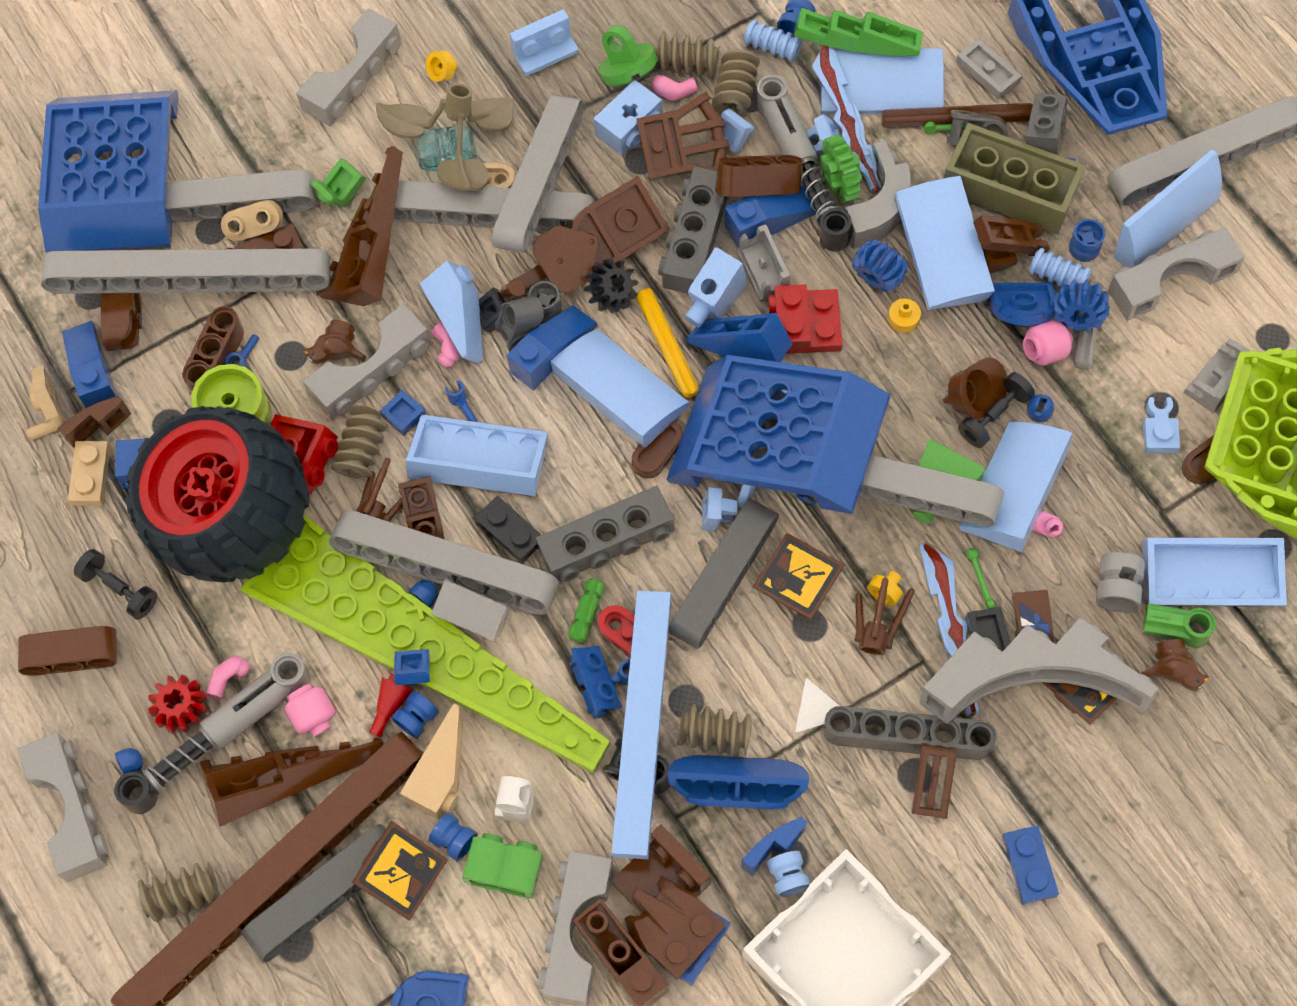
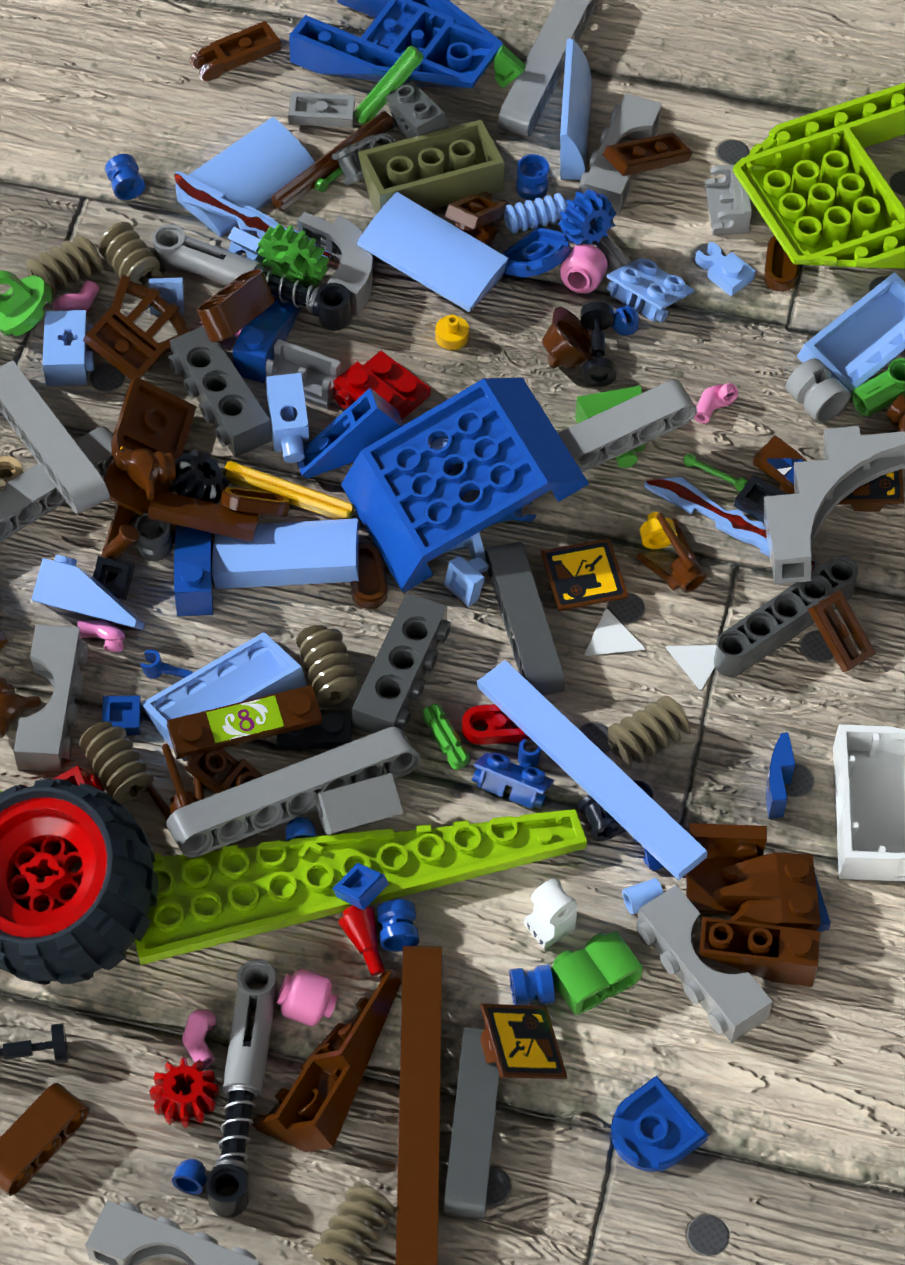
camera: 50 degrees left, 10 degrees down
(436, 776) = (466, 948): tan slope -> none
(458, 486) = (244, 722): none -> reddish brown plate
(518, 319) = (153, 563): dark grey piece -> none
(556, 491) = (327, 664): none -> dark tan piece
(573, 249) = (146, 468): none -> reddish brown animal
(584, 315) = (202, 515): none -> reddish brown tile
(592, 842) = (641, 894): none -> light blue hinge
(632, 333) = (255, 501): none -> reddish brown tile
(738, 781) = (705, 753): blue brick -> none
(772, 40) = (123, 207): light blue piece -> none
(775, 638) = (612, 637): none -> white sticker
(788, 873) = (811, 786): light blue wheel -> none
(866, 35) = (204, 146): bright green slope -> none
(880, 265) = (399, 305): blue gear -> none
(1025, 470) = (665, 354): light blue slope -> none
(1047, 85) = (389, 83): none -> bright green axle
(1084, 395) = (647, 288): none -> light blue hinge
(1154, 136) = (507, 66): none -> bright green tile
(1191, 289) = (647, 154): none -> reddish brown tile

